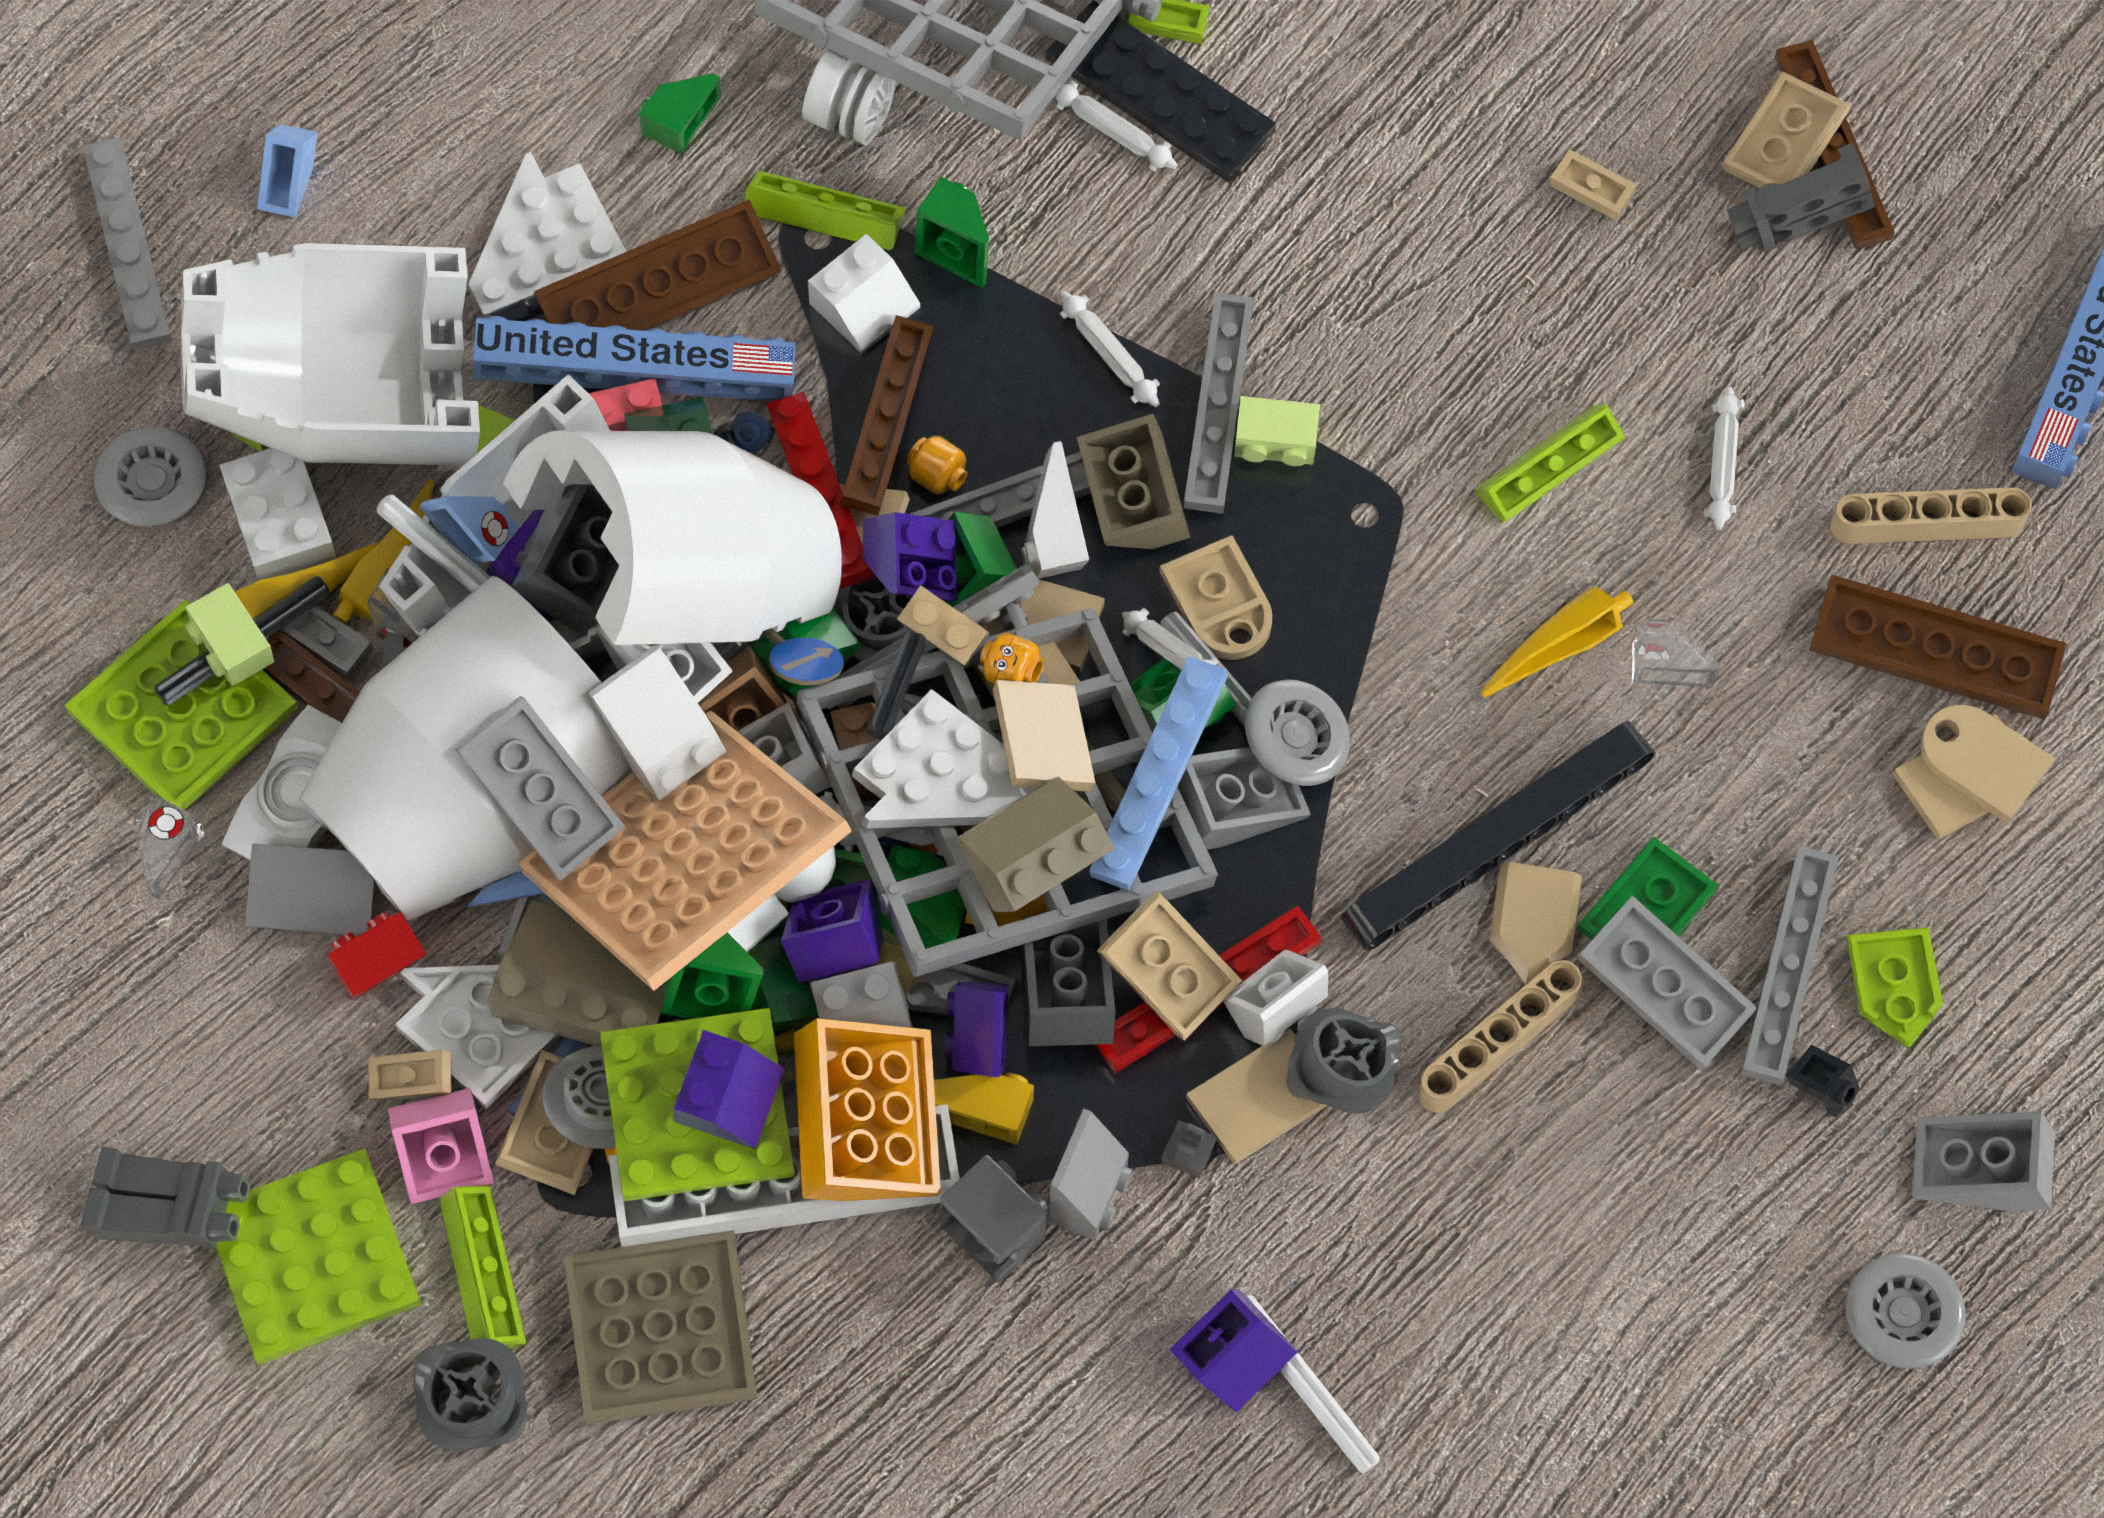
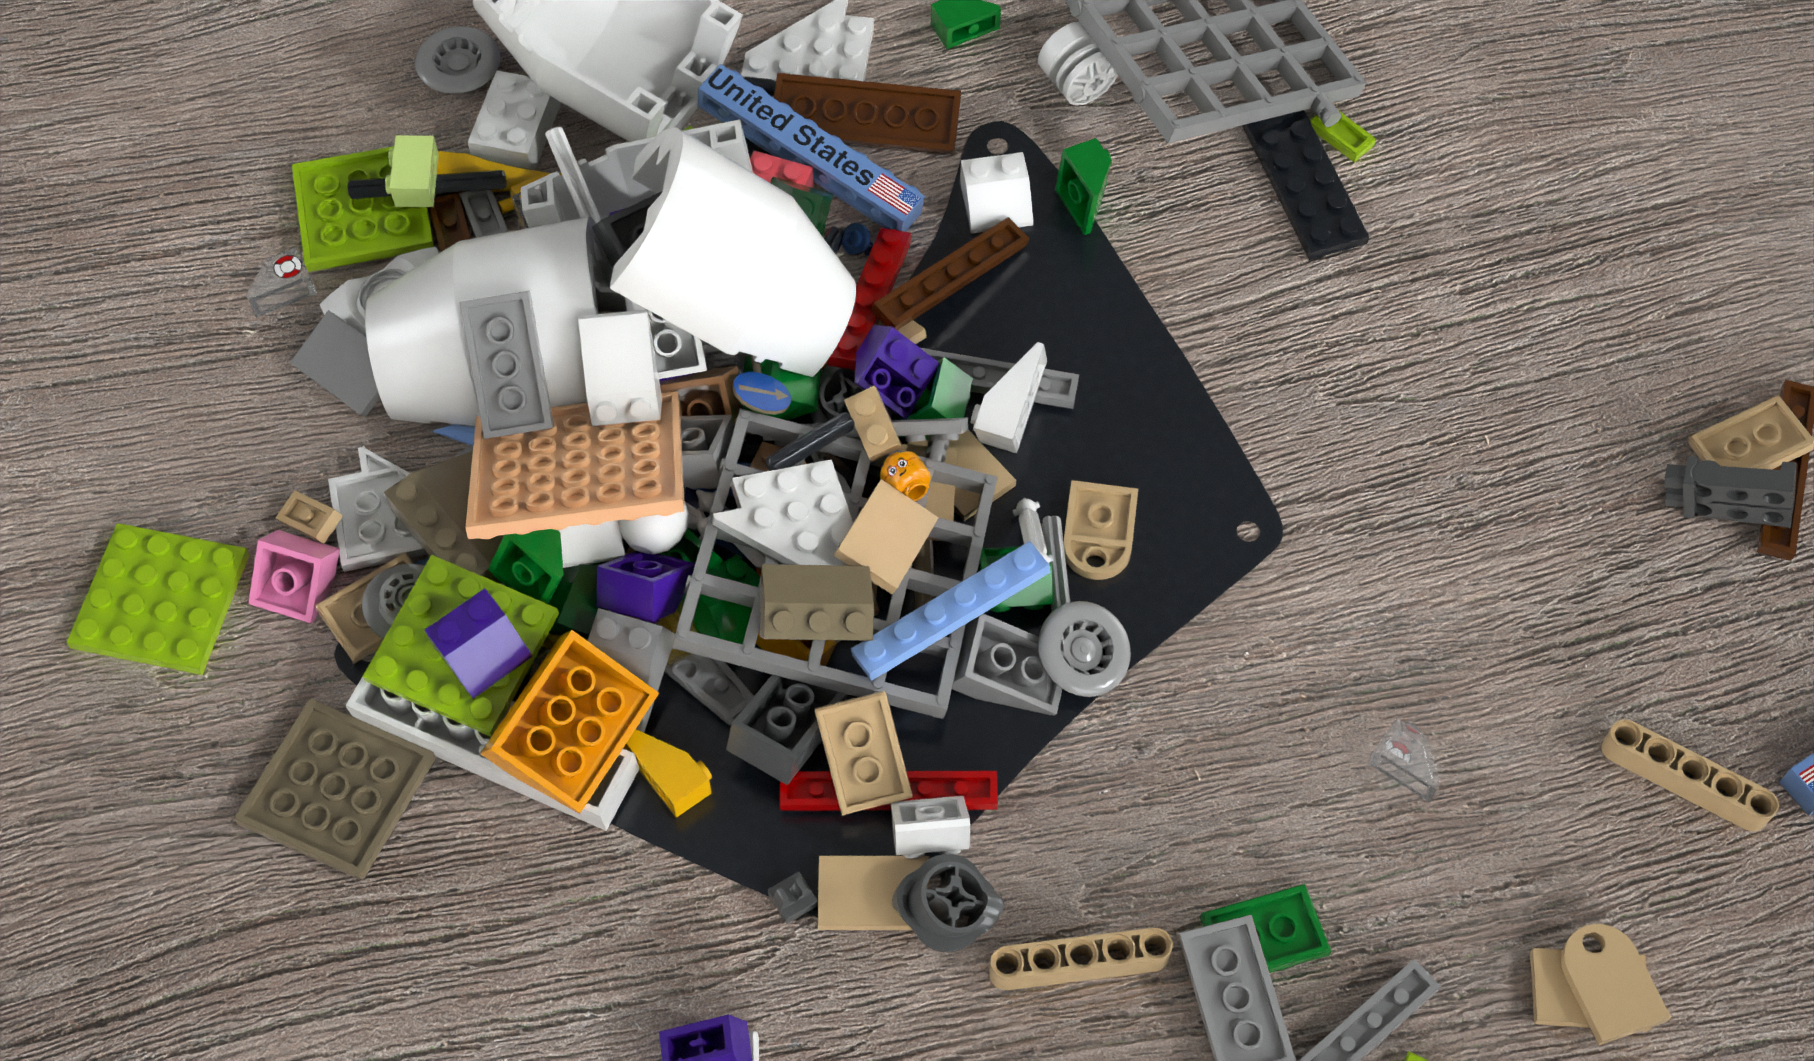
camera: 35 degrees right, 5 degrees down
(162, 1201) = (99, 523): dark grey hips -> none
(375, 954) = (350, 426): red brick -> none
(439, 1367) = (175, 752): dark grey piece -> none
(472, 524) = (609, 181): light blue slope -> none
(482, 1265) = (257, 676): lime slope -> none
(824, 209) = (1012, 129): lime slope -> none
(937, 465) = (964, 327): light orange head -> none
(979, 1028) = (702, 716): dark purple slope -> none
(994, 1217) = (611, 855): dark grey piece -> none
(1088, 1179) = (694, 867): light grey slope -> none
(1109, 349) = (1142, 320): white wheel -> none
(1115, 126) = (1252, 180): white wheel -> none
(1133, 485) = (1089, 414): dark tan slope -> none
(1218, 403) = (1193, 396): light grey plate -> none
(1277, 431) = (1221, 436): yellowish green brick -> none
(1497, 836) = (1185, 811): black beam -> none
(1534, 916) = (1172, 887): tan tile -> none
(1550, 462) = (1413, 572): lime slope -> none
(1569, 631) = (1341, 698): yellow piece -> none
(1592, 185) = (1578, 399): tan plate -> none
(1724, 458) = (1550, 642): white wheel -> none
(1938, 647) = (1631, 877): reddish brown plate -> none

